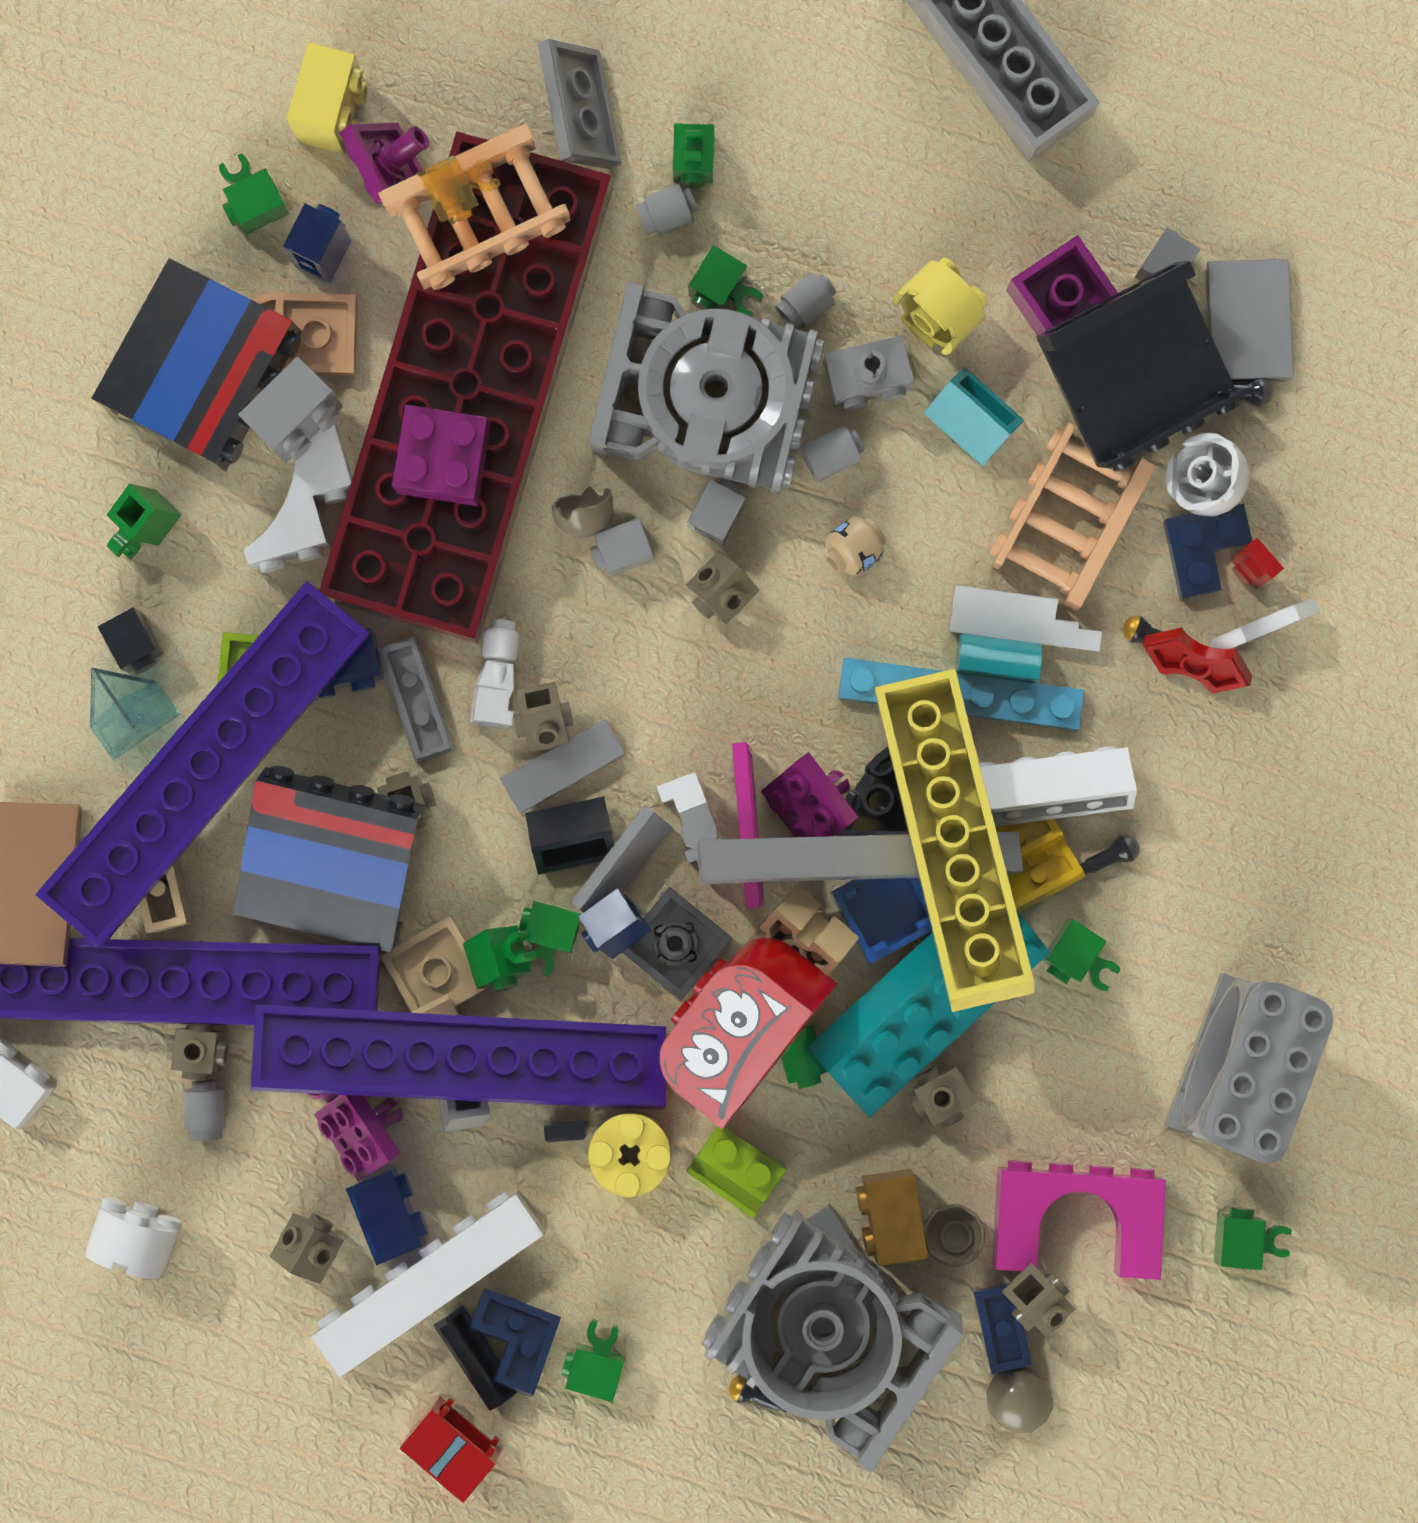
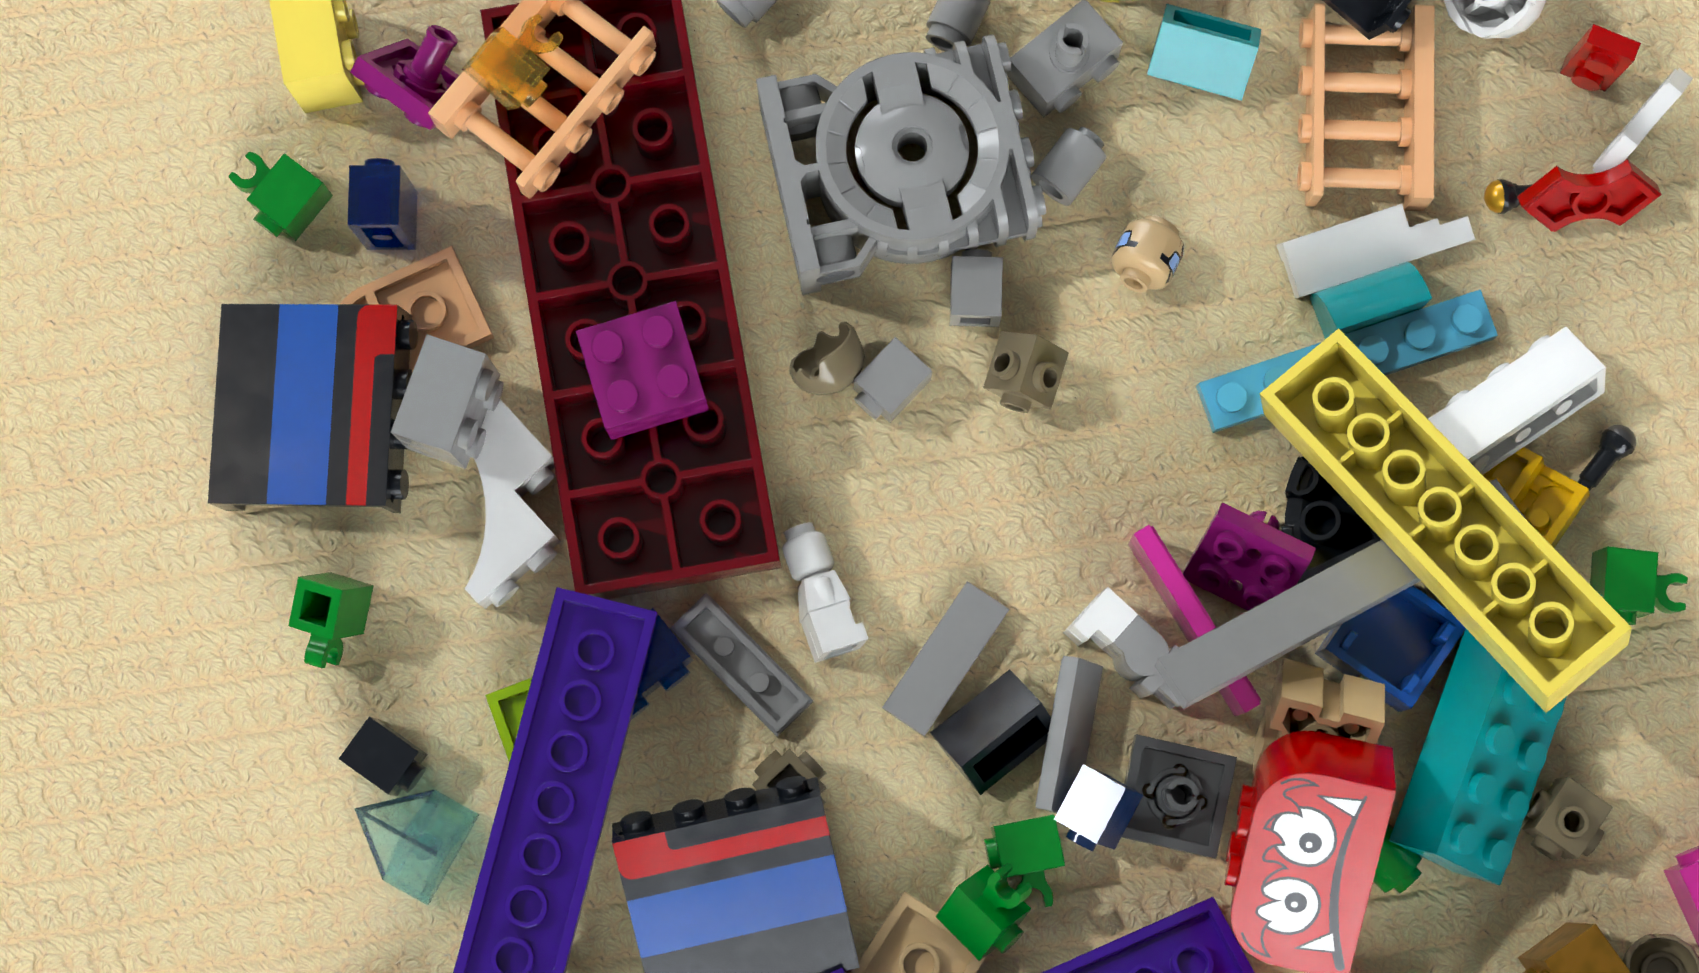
camera: 25 degrees left, 5 degrees down
(542, 717) = (902, 622): dark tan brick -> none
(721, 281) = (852, 39): green brick -> none
(1192, 547) = (1514, 77): dark blue plate -> none

